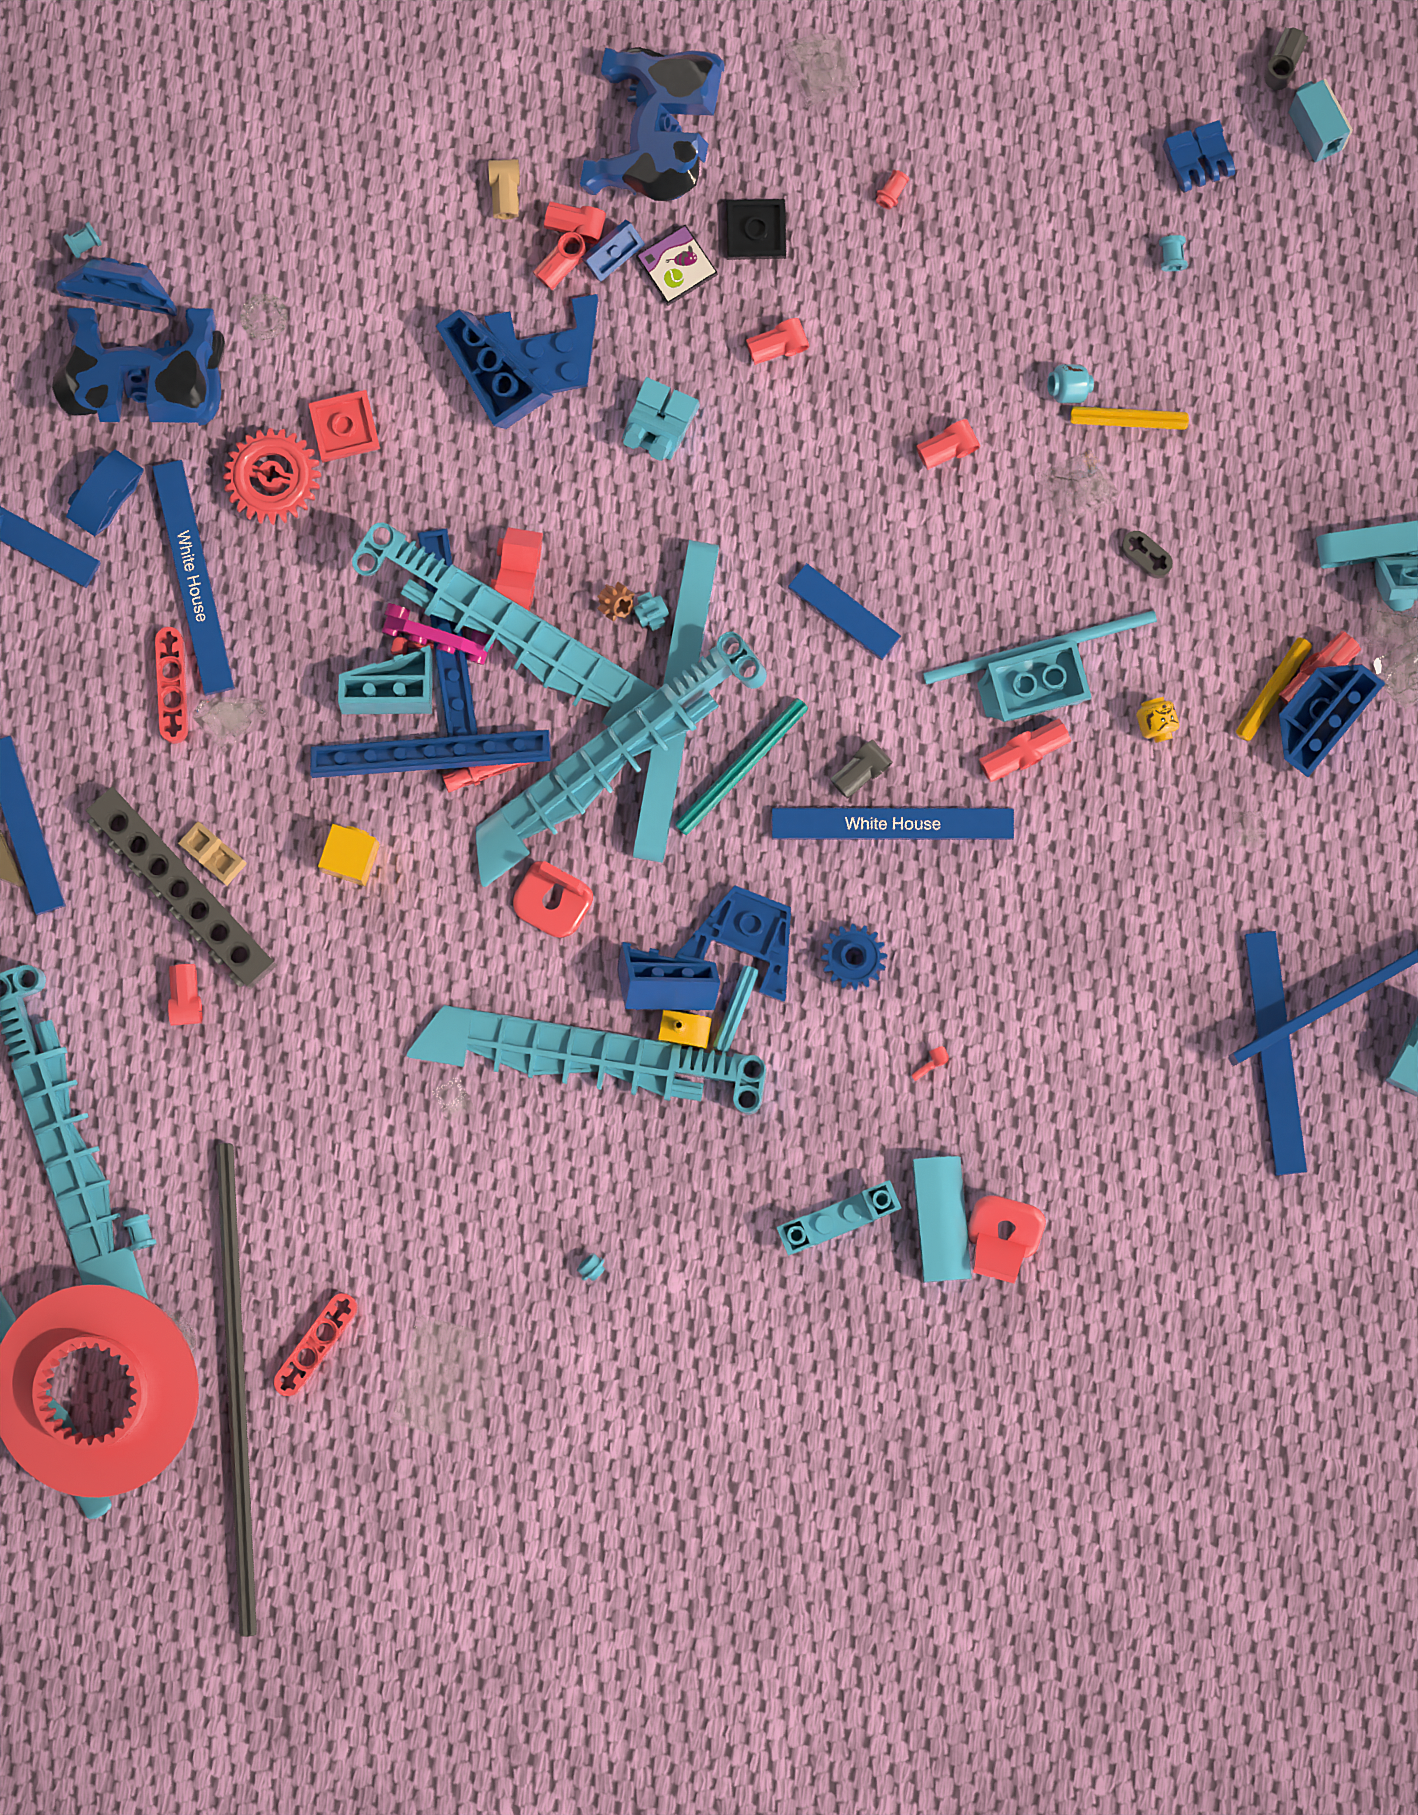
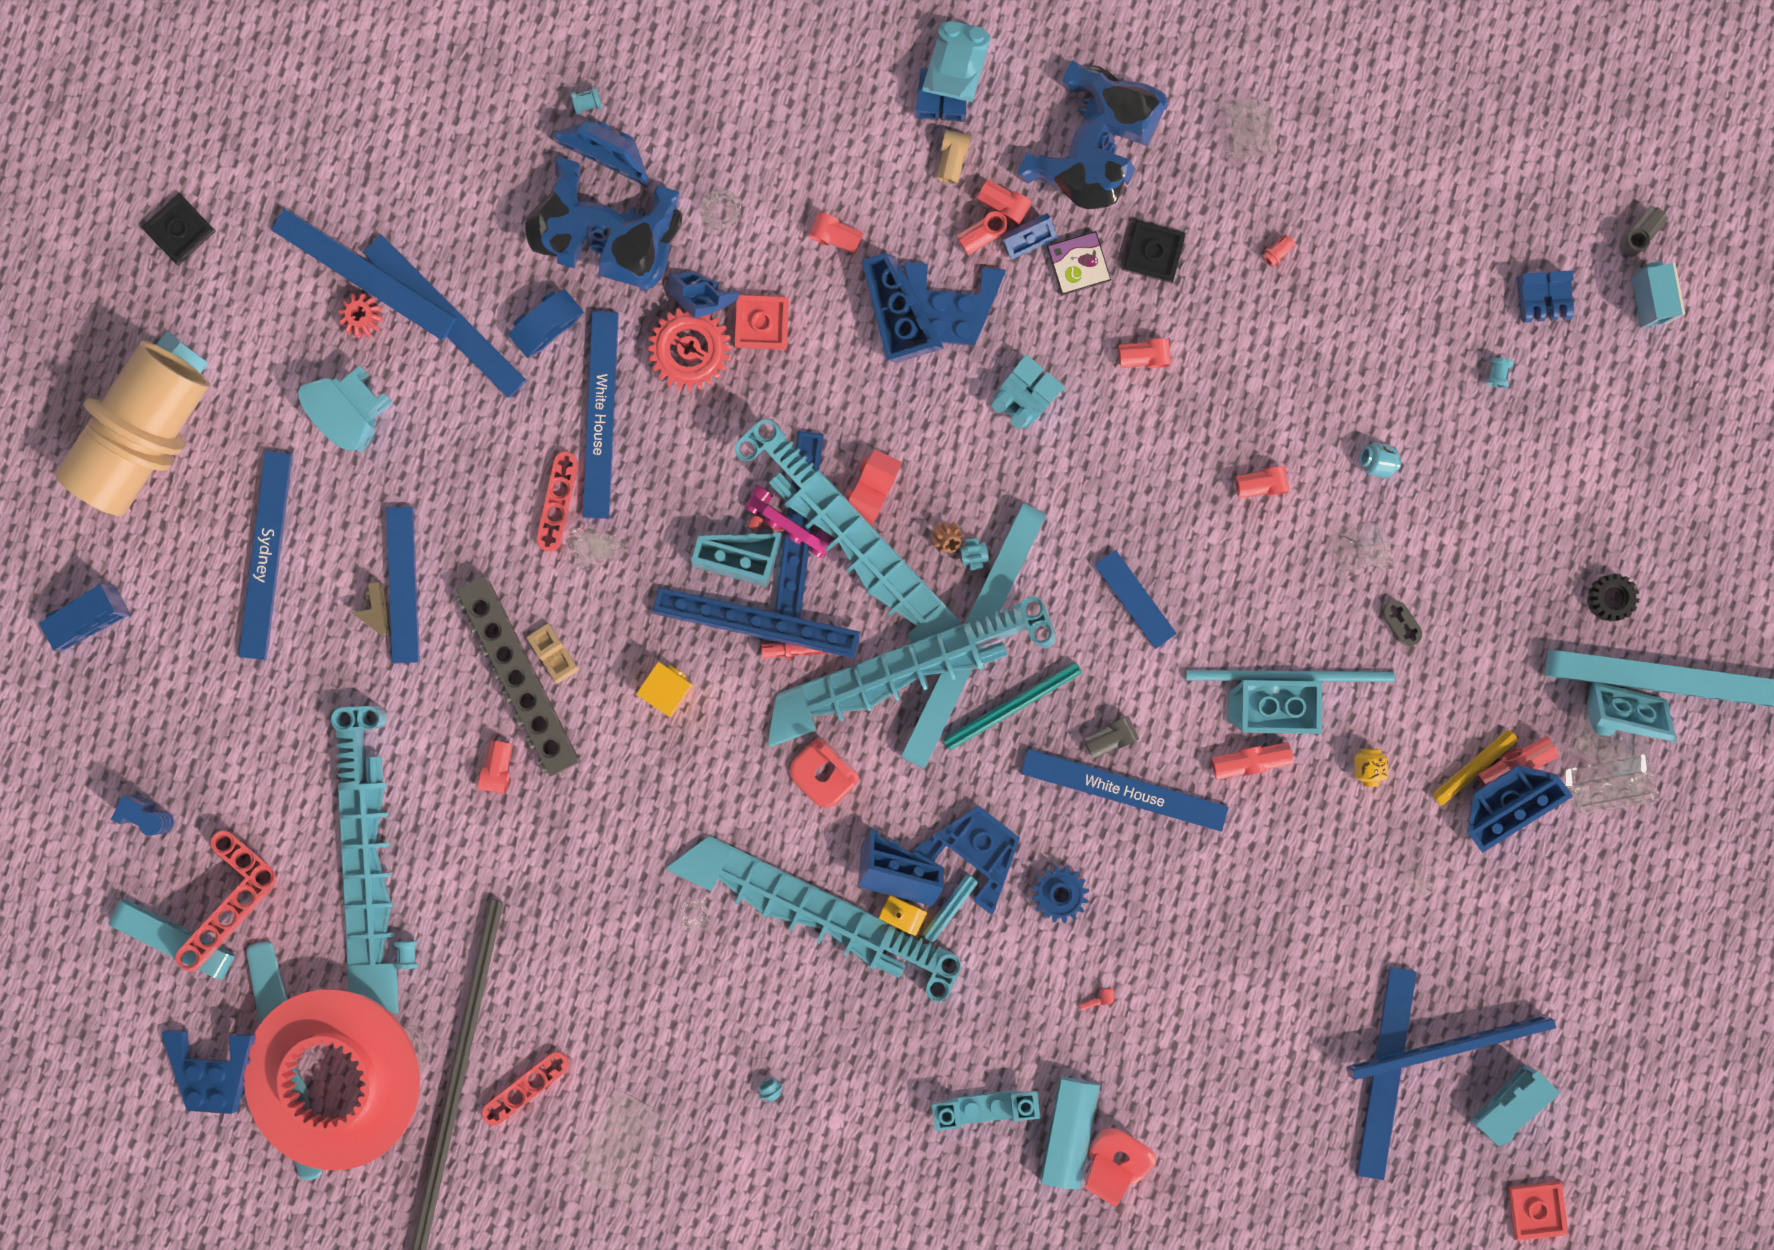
camera: 10 degrees right, 5 degrees up
(266, 413) = (698, 294): none -> blue slope
(390, 305) = (830, 231): none -> coral piece
(480, 83) = (957, 61): none -> medium azure slope
(485, 130) = (930, 104): none -> blue legs
(1129, 418) = (1421, 502): yellow axle -> none
(1380, 446) = (1628, 597): none -> black tyre

